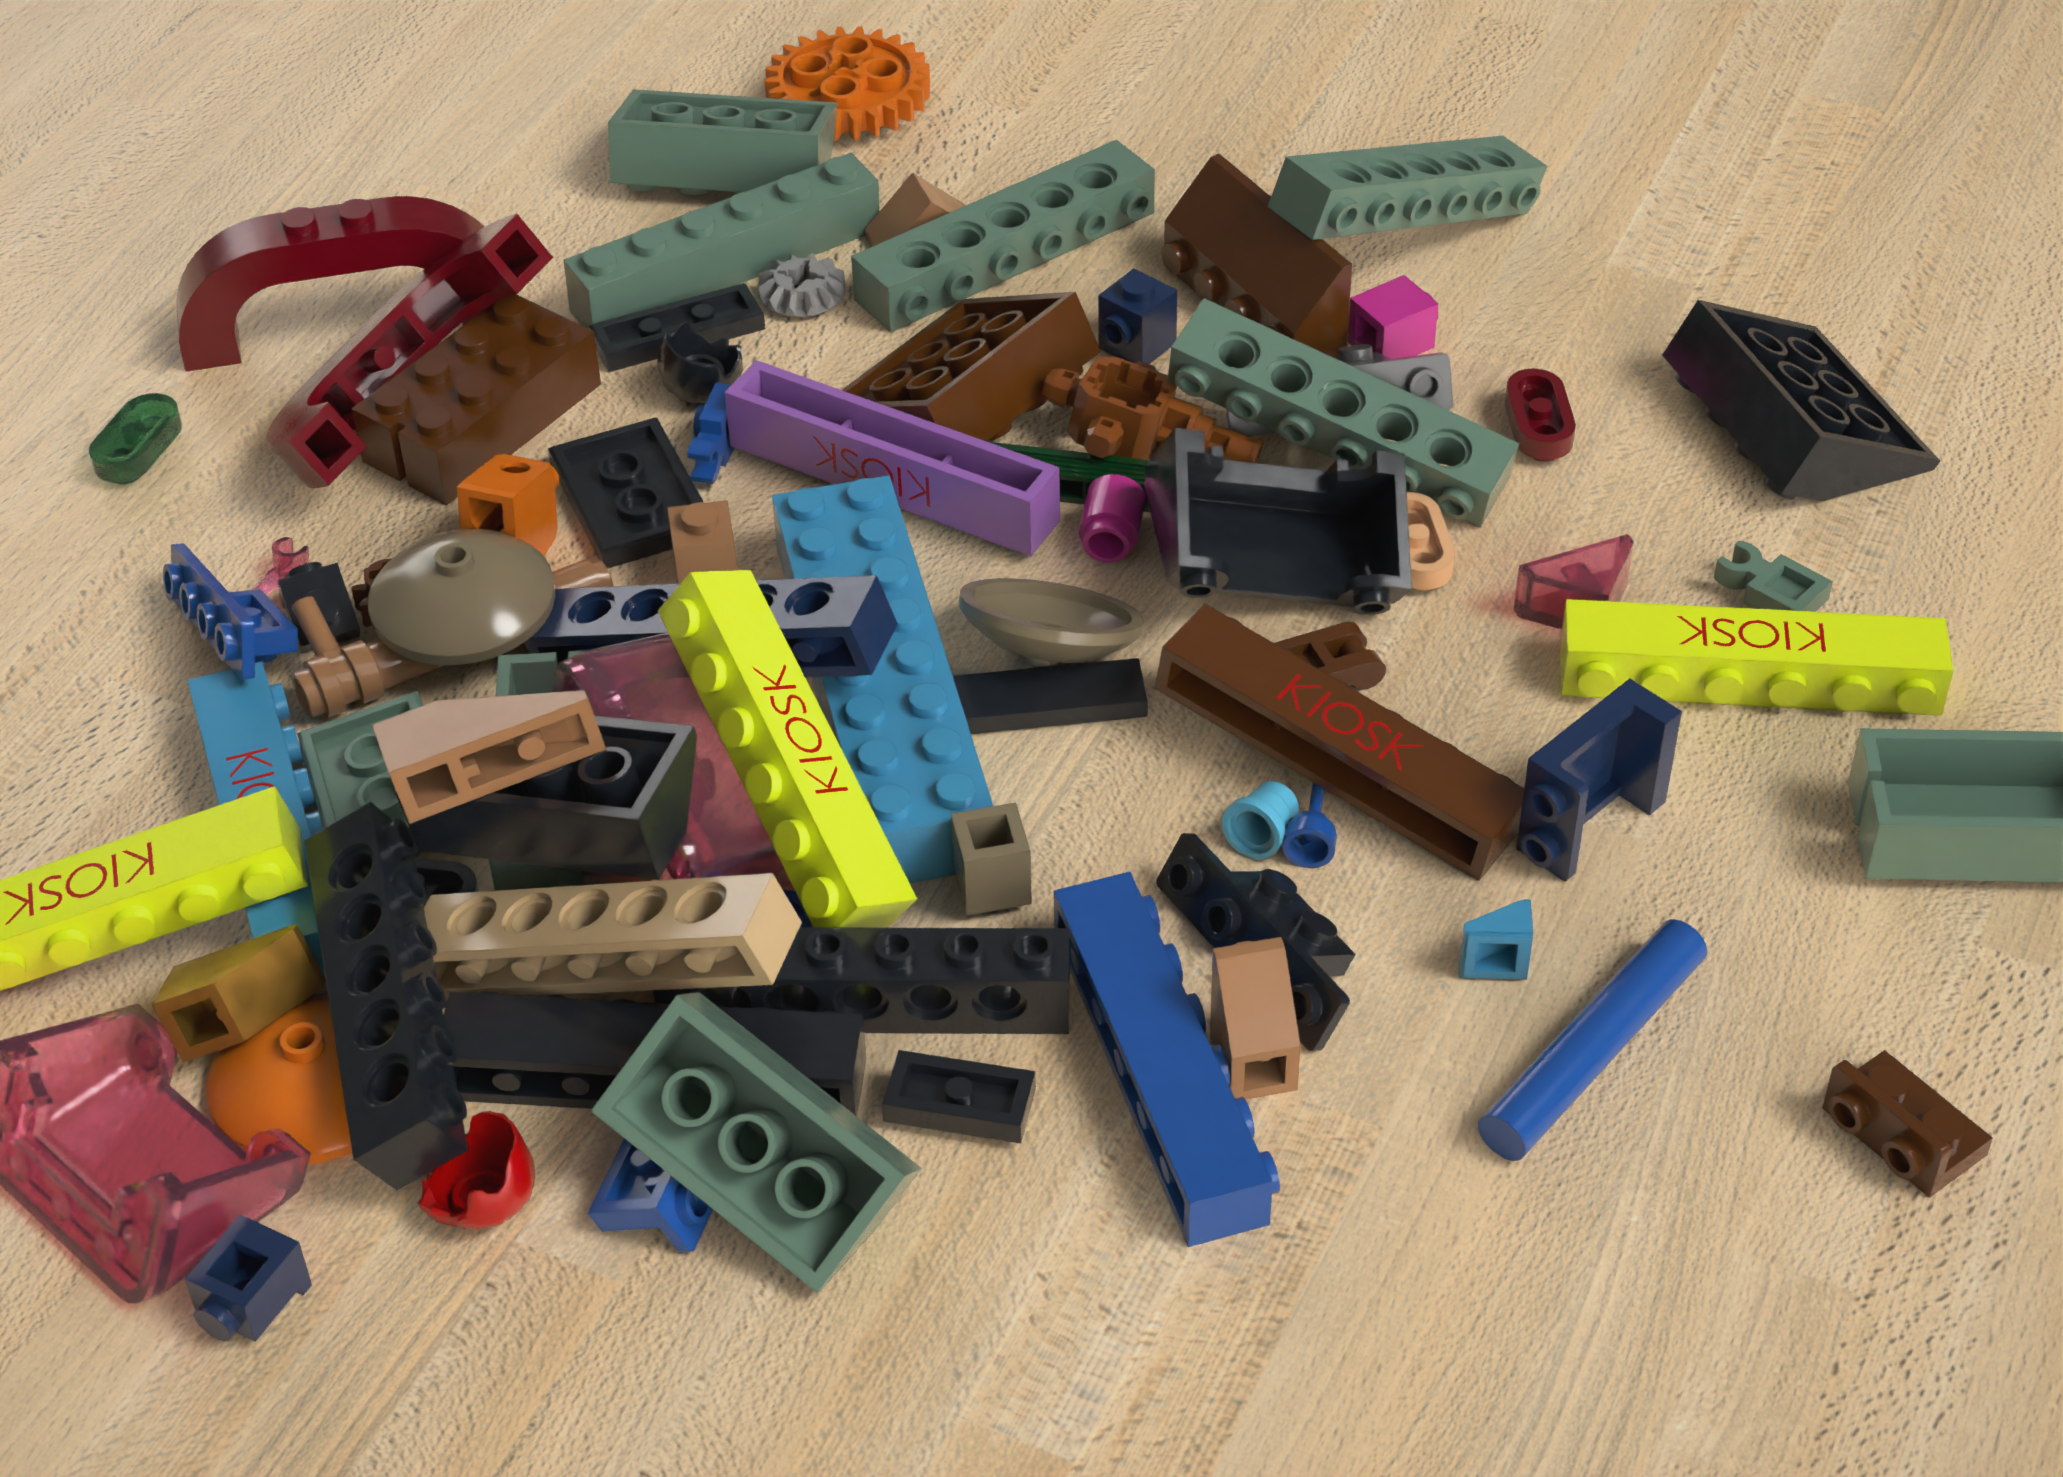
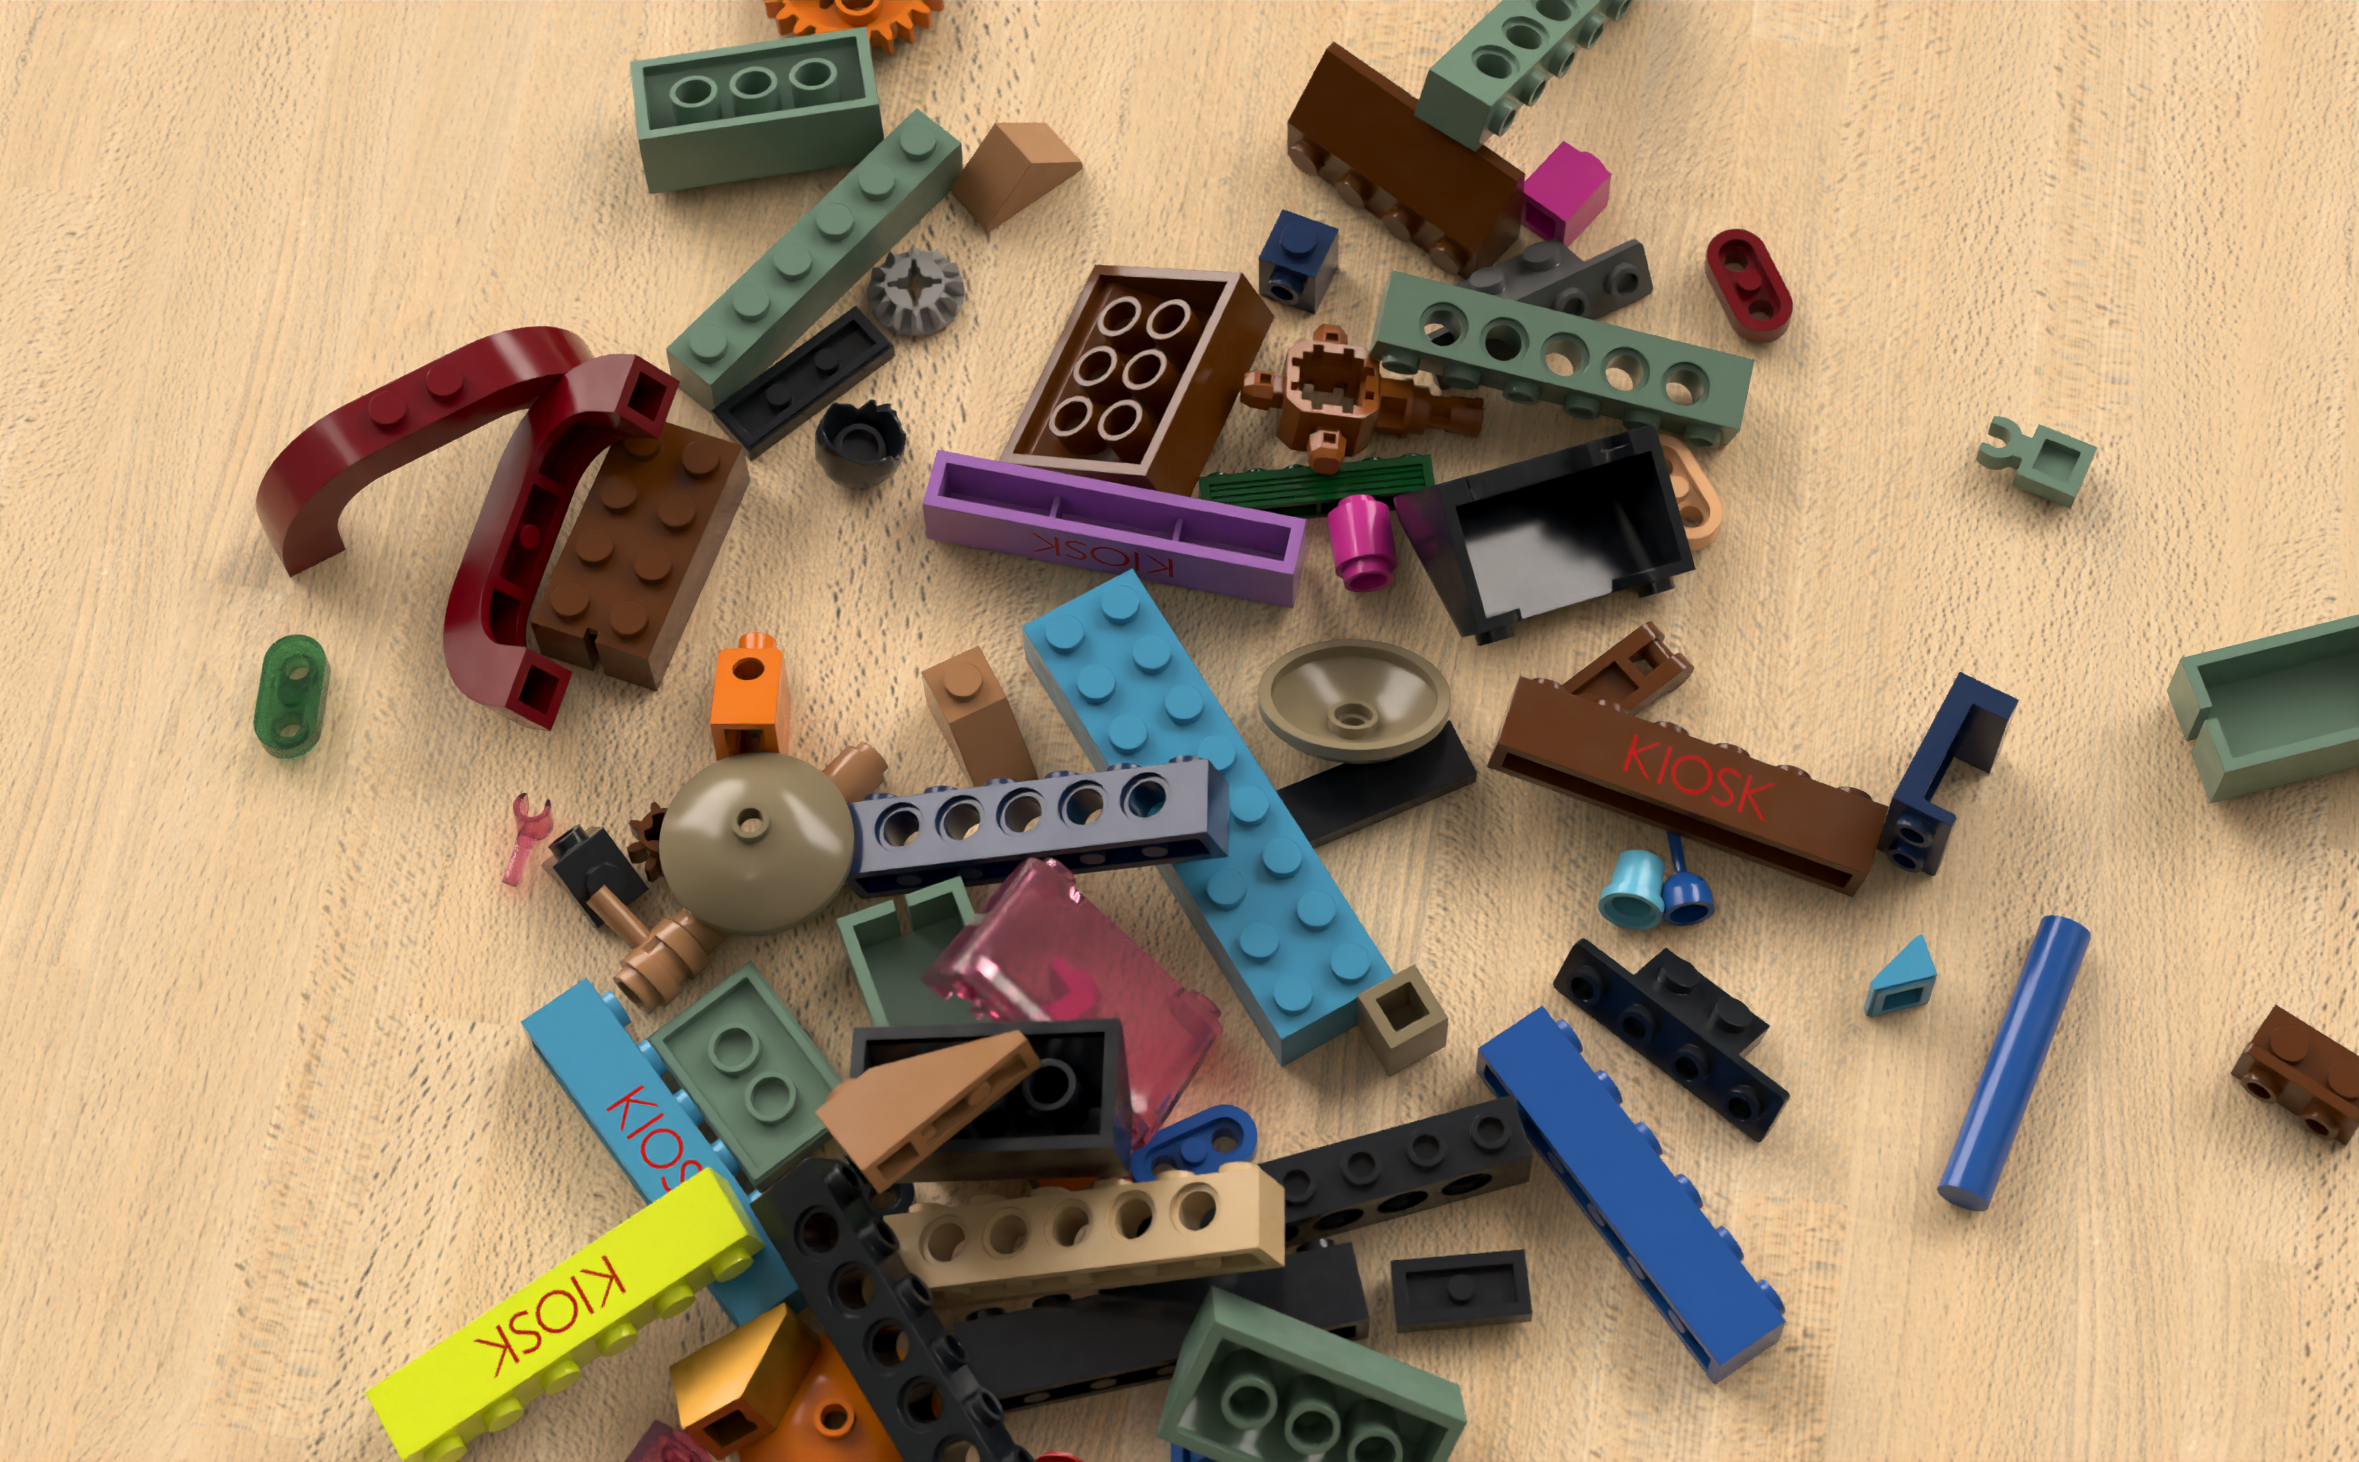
camera: 15 degrees left, 20 degrees up
(238, 624) = (521, 919): blue bracket -> none
(623, 489) = (847, 627): black tile -> none
(711, 437) = (908, 525): blue plate -> none
(785, 752) = (1183, 981): neon yellow brick -> none
(1002, 235) = (1193, 56): sand green brick -> none
(1255, 1017) = (1712, 1142): medium nougat slope -> none
(1584, 573) = (1854, 519): clear pink slope -> none
(1757, 656) = (2044, 564): neon yellow brick -> none
(1793, 404) = (2001, 208): black slope -> none

